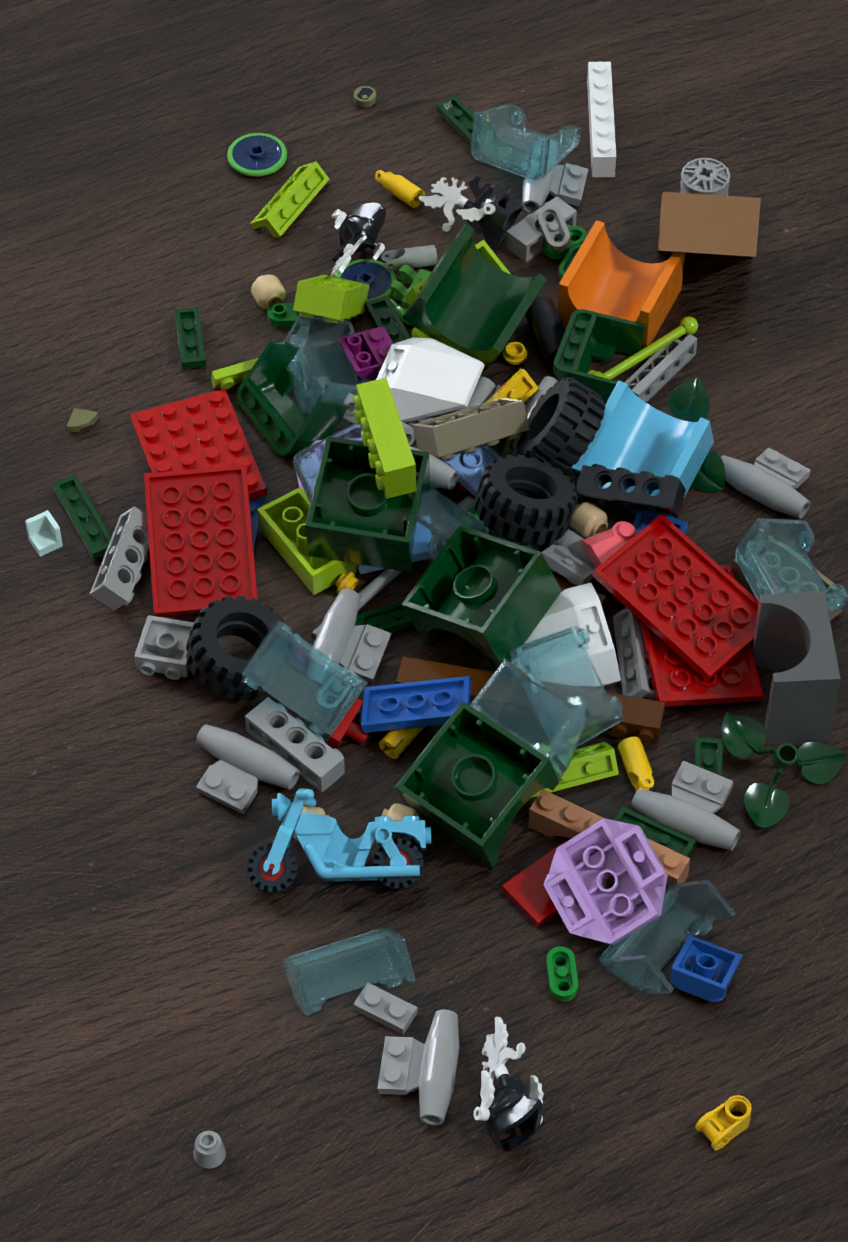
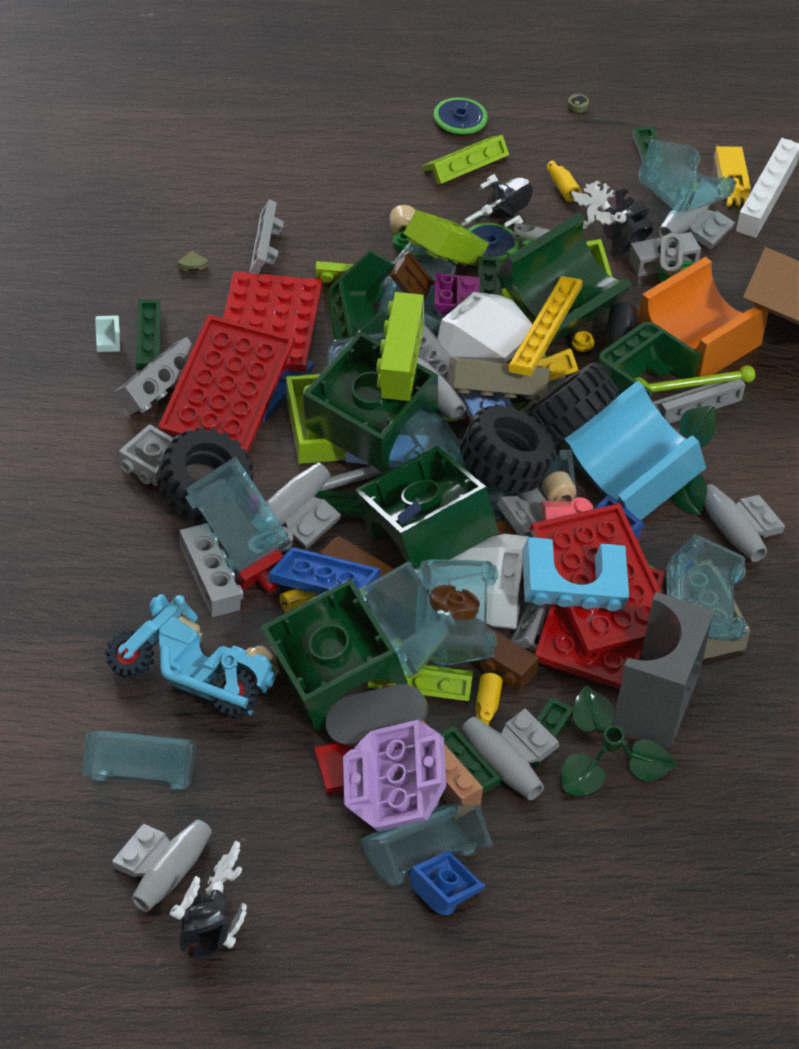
camera: 20 degrees right, 5 degrees down
(136, 353) = (267, 225): none -> light grey hinge
(190, 338) = (318, 232): dark green plate -> none
(240, 766) = (157, 567): light grey plate -> none
(318, 353) = (411, 276): none -> reddish brown plate
(346, 581) = (331, 463): yellow plate -> none
(385, 1008) = (158, 803): light grey plate -> none
(477, 607) = (409, 512): none -> dark blue tile
(491, 356) = (545, 326): none -> yellow tile
(539, 831) = (363, 712): none -> dark grey tile
(550, 108) = (731, 162): none -> yellow hinge
(562, 976) = (321, 839): green plate -> none
(570, 683) = (460, 604): none -> reddish brown tile
(642, 628) = (546, 585): none -> medium azure arch
(666, 502) = (603, 475): black brick -> none
(721, 1125) = (386, 1012): yellow piece -> none

